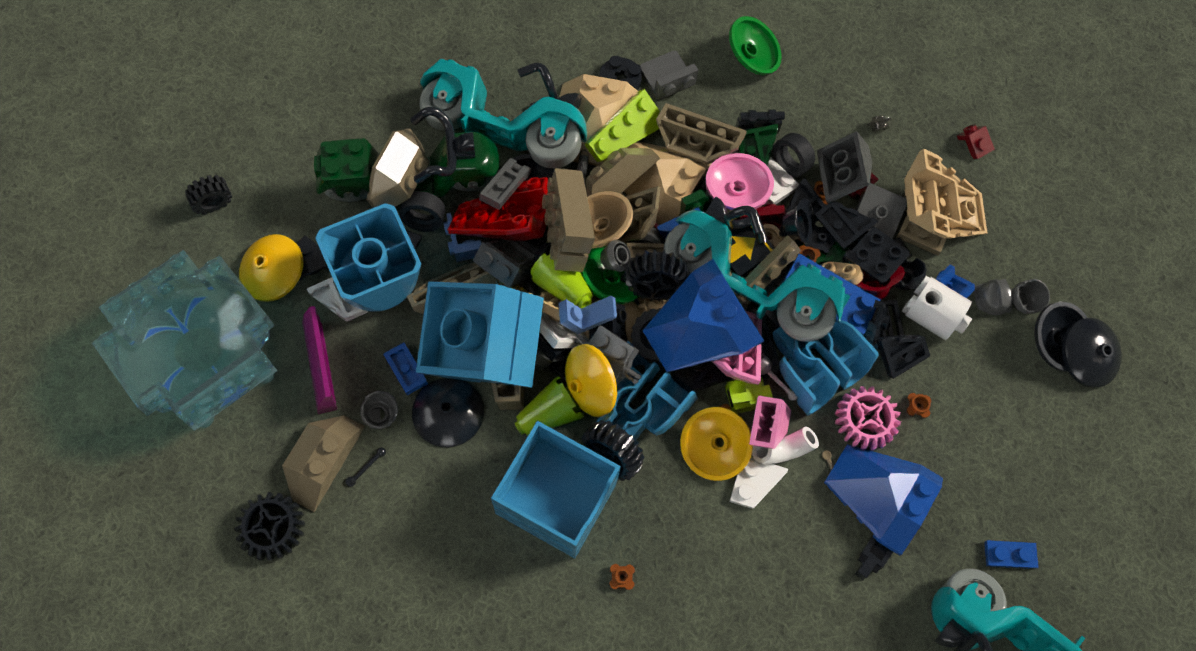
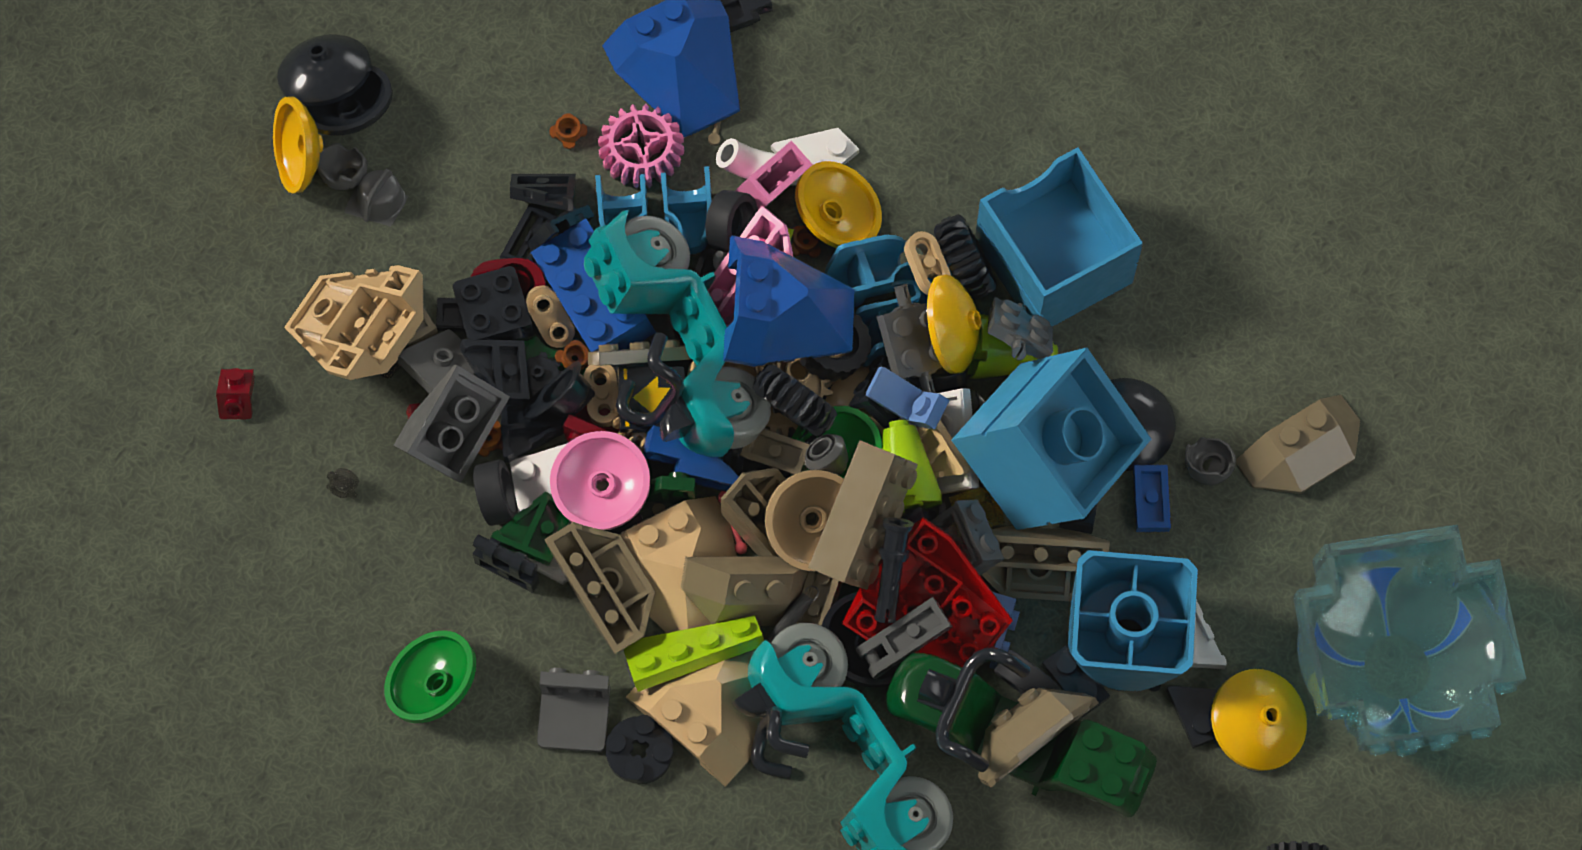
camera: 145 degrees left, 0 degrees up
(261, 507) = (1372, 398): black gear -> none
(318, 361) = (1256, 555): magenta slope -> none
(350, 481) = (1281, 406): black hinge -> none
(534, 201) = (893, 553): none -> black pin
(543, 402) = (1020, 330): none -> dark grey plate
(627, 571) = (1030, 148): dark orange plate -> none
(632, 418) = (927, 265): none -> tan plate
(783, 376) = (728, 216): none -> black tyre
(915, 273) = (459, 265): black hair -> none
(943, 312) = (467, 209): white cylinder -> none
(955, 282) = (419, 231): blue bracket -> none
(1066, 286) = (295, 144): none -> yellow dish

